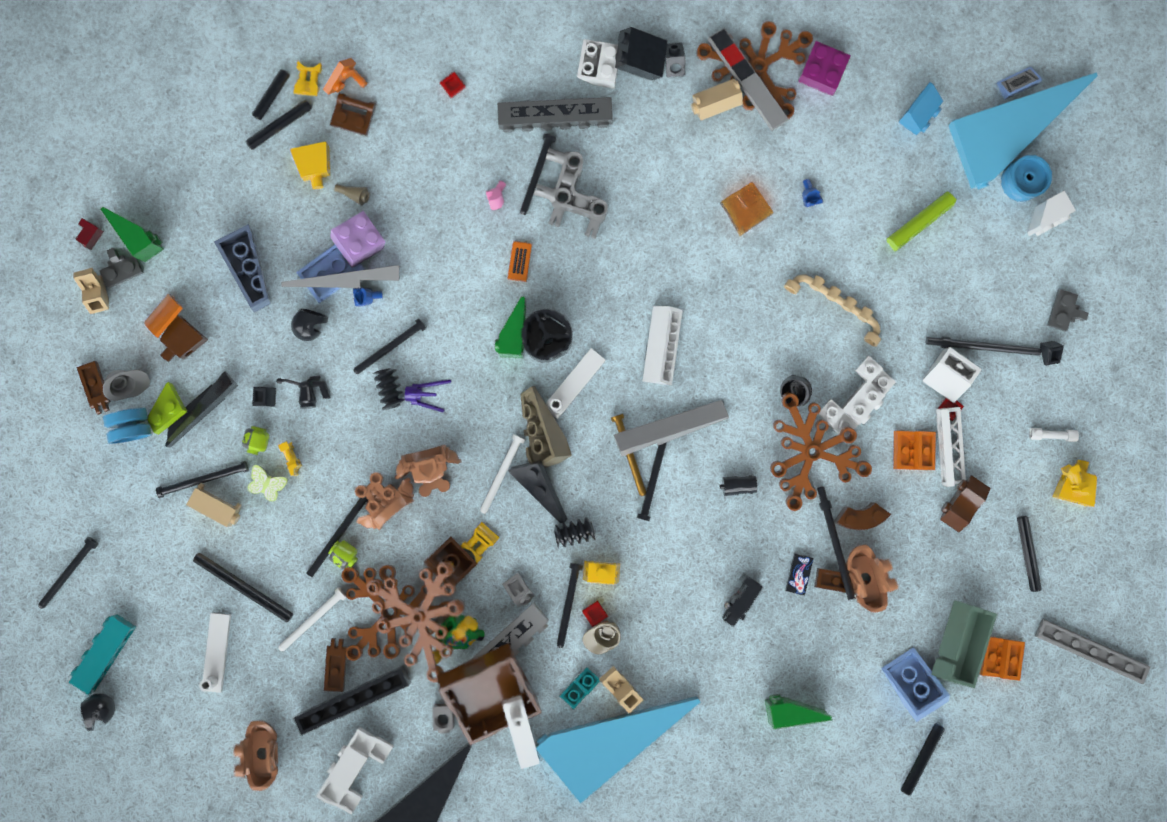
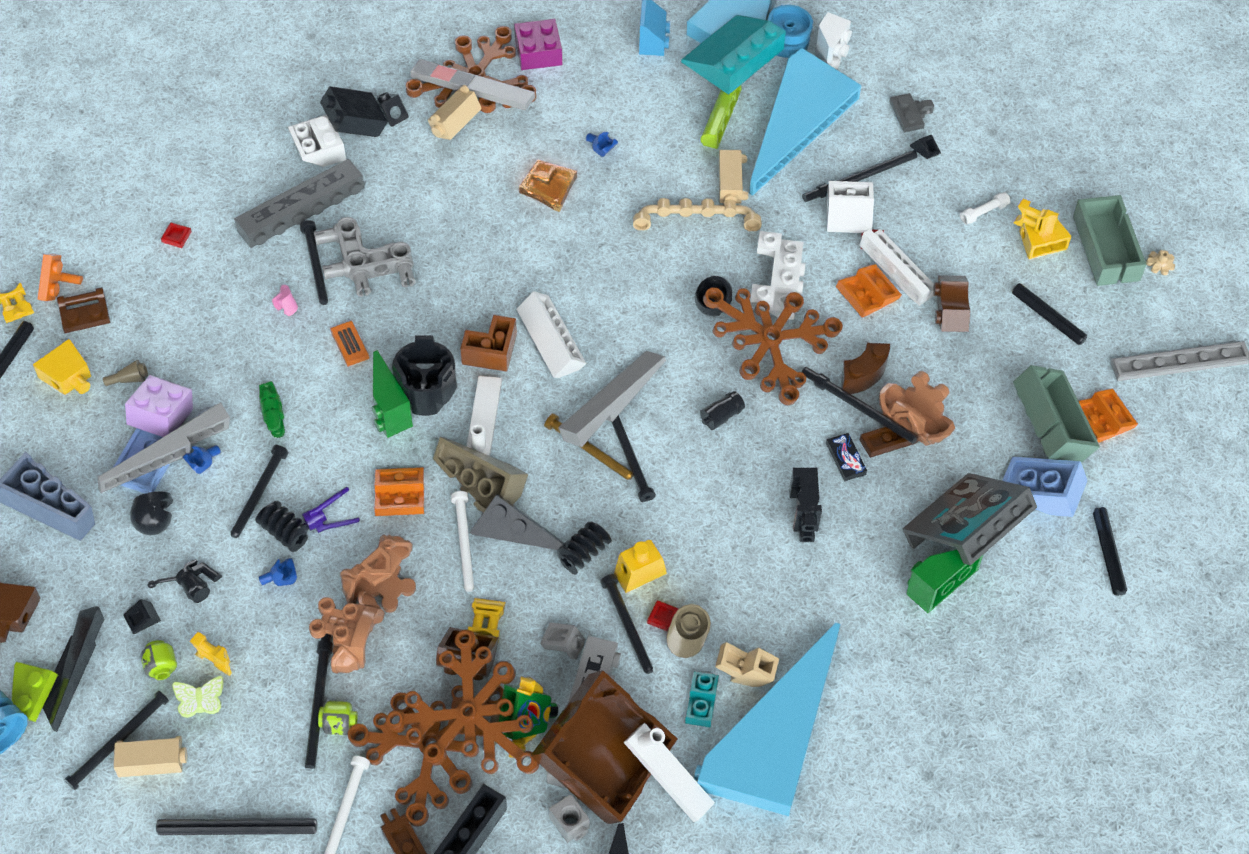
camera: 35 degrees left, 30 degrees down
(367, 422) = (280, 573): none -> blue piece
(434, 285) = (272, 409): none -> green hinge
(482, 407) = (399, 491): none -> orange slope
(611, 335) = (490, 349): none -> dark orange brick
(841, 687) = (972, 515): none -> dark grey panel
(884, 288) = (731, 176): none -> tan brick
(967, 177) = (736, 51): none -> teal slope
(992, 255) = (805, 105): none -> medium azure slope
(1119, 526) = (1109, 249): none -> sand green piece
(1146, 562) = (1161, 261): none -> tan plant

